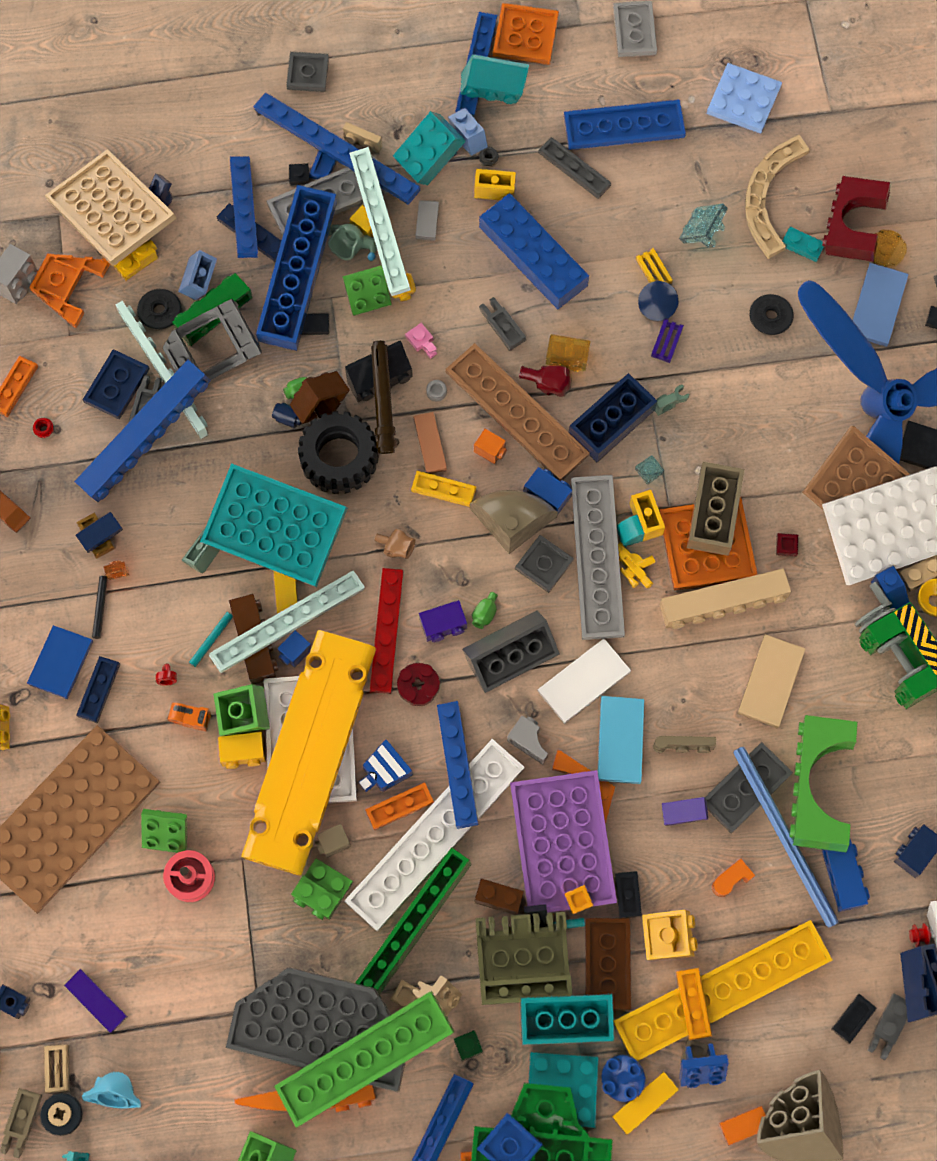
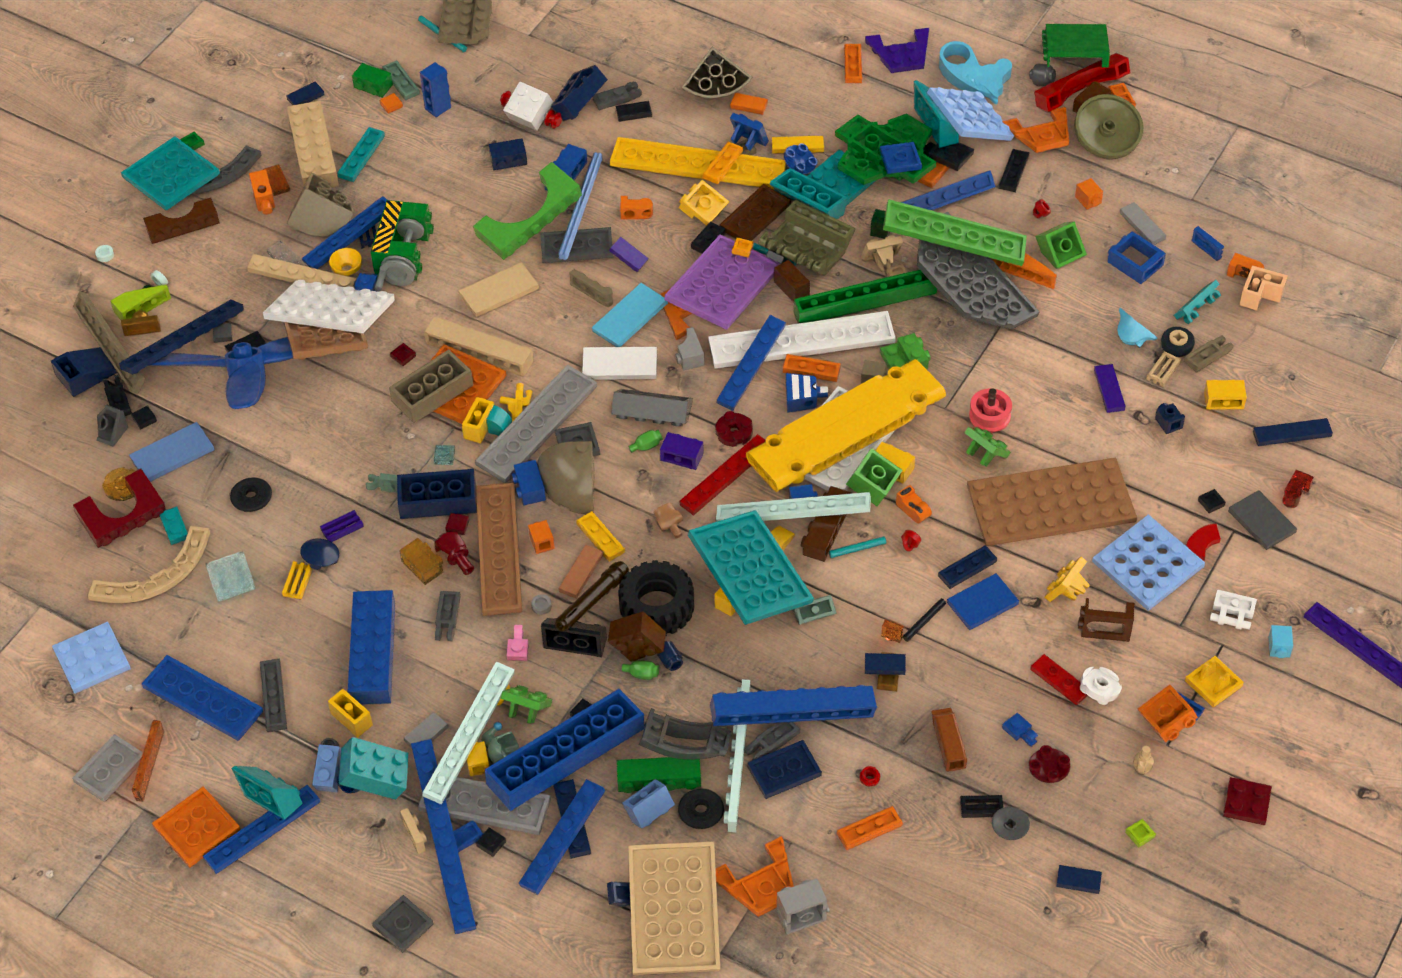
camera: 140 degrees left, 20 degrees down
(572, 410) = (457, 523): none -> dark red tile
(611, 51) = (148, 760): none -> clear orange tile

